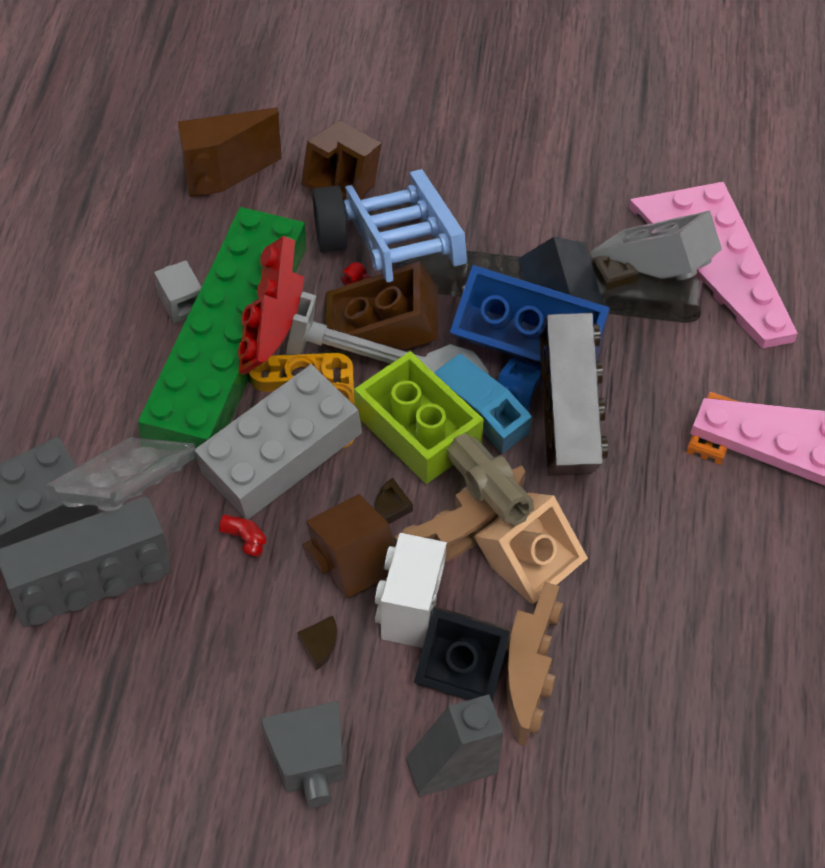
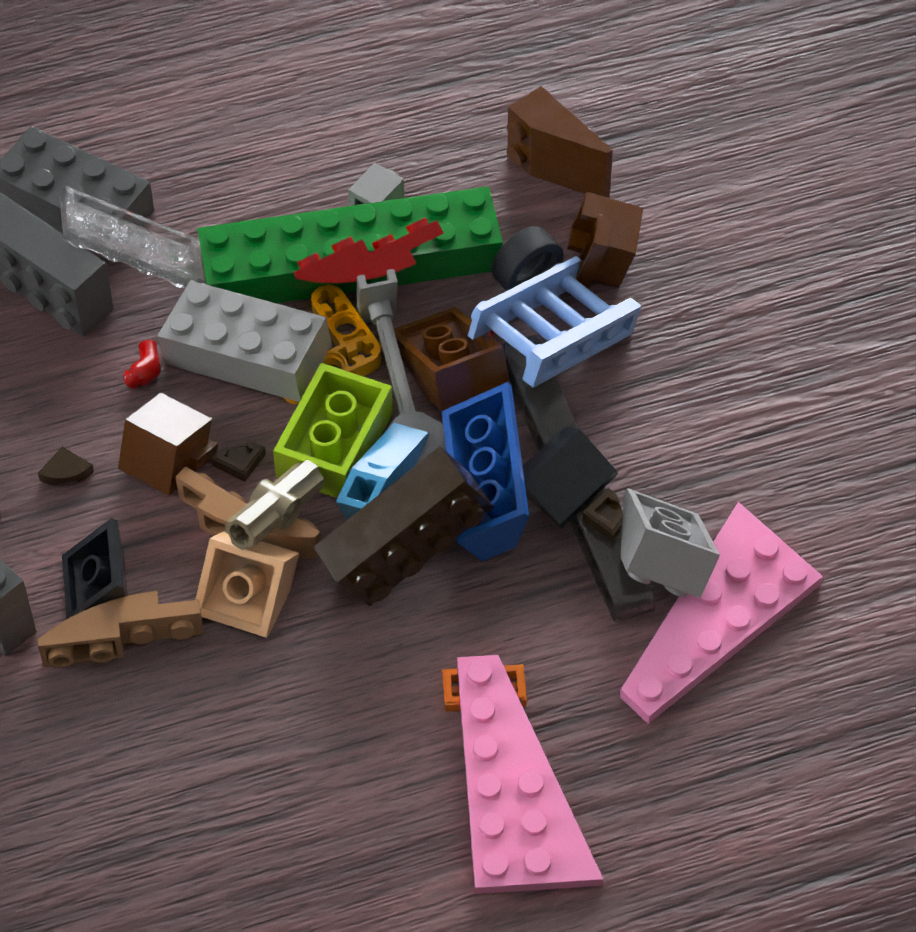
camera: 65 degrees right, 0 degrees up
(410, 589) = (133, 495): white brick -> none

